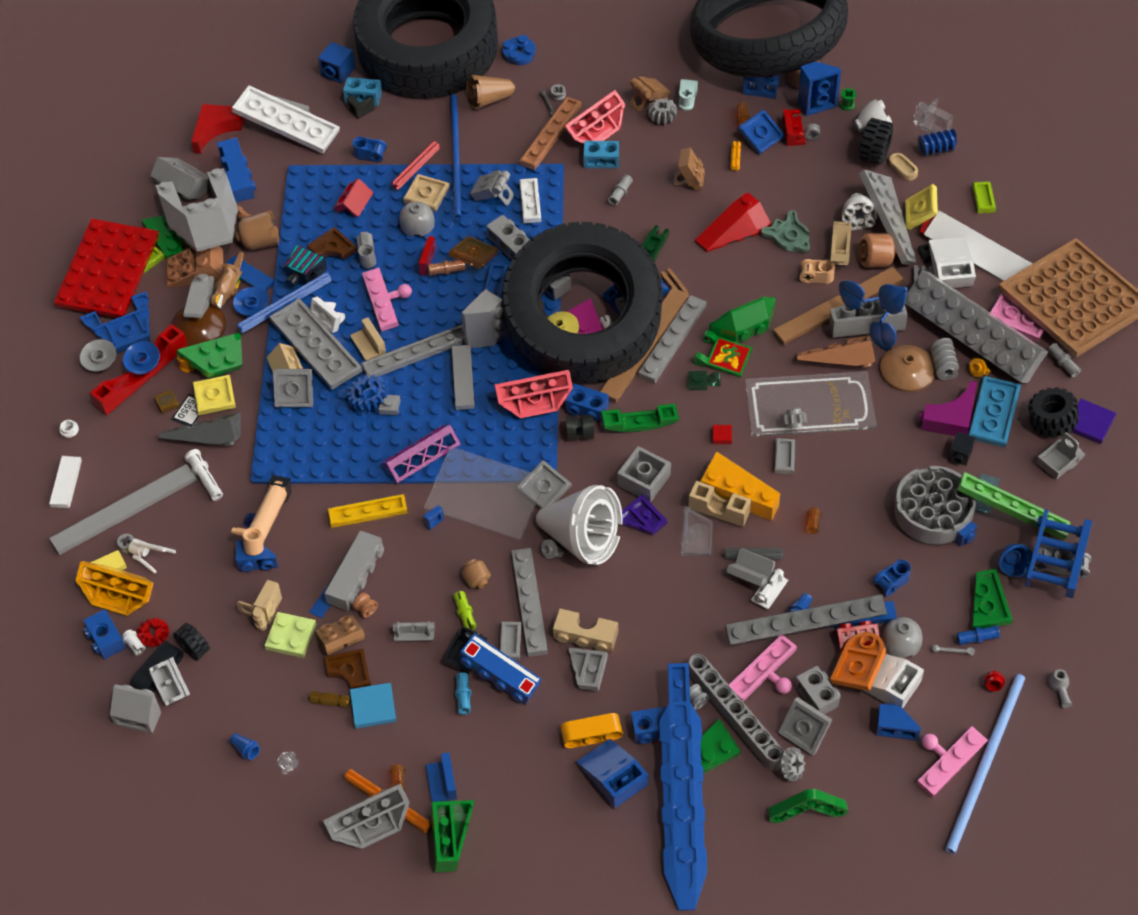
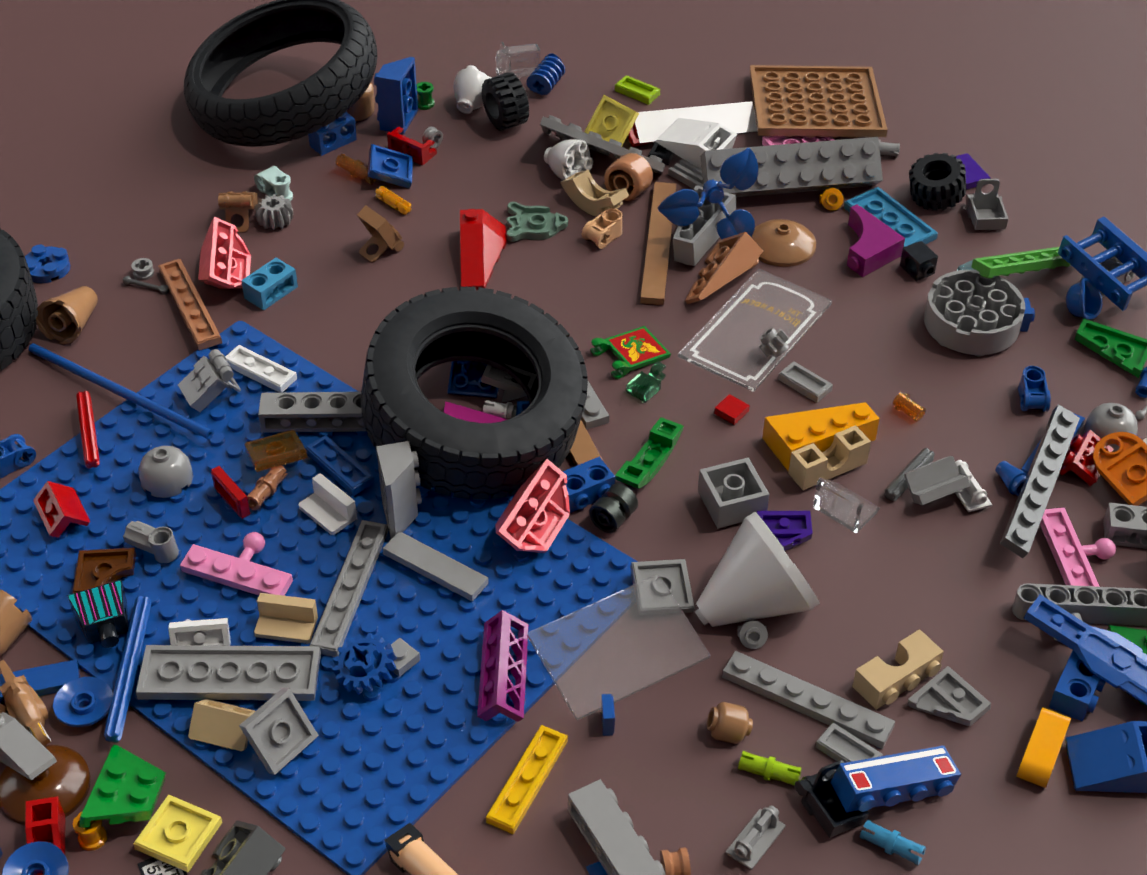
camera: 55 degrees left, 10 degrees down
(427, 191) = (133, 441): tan tile -> none
(458, 302) = (329, 505): none -> white panel
(620, 190) = (332, 298): light grey pin -> none
(745, 320) = (614, 306): green wedge -> none
(903, 166) = (538, 110): tan tile -> none
(944, 359) = (801, 211): light grey piece -> none

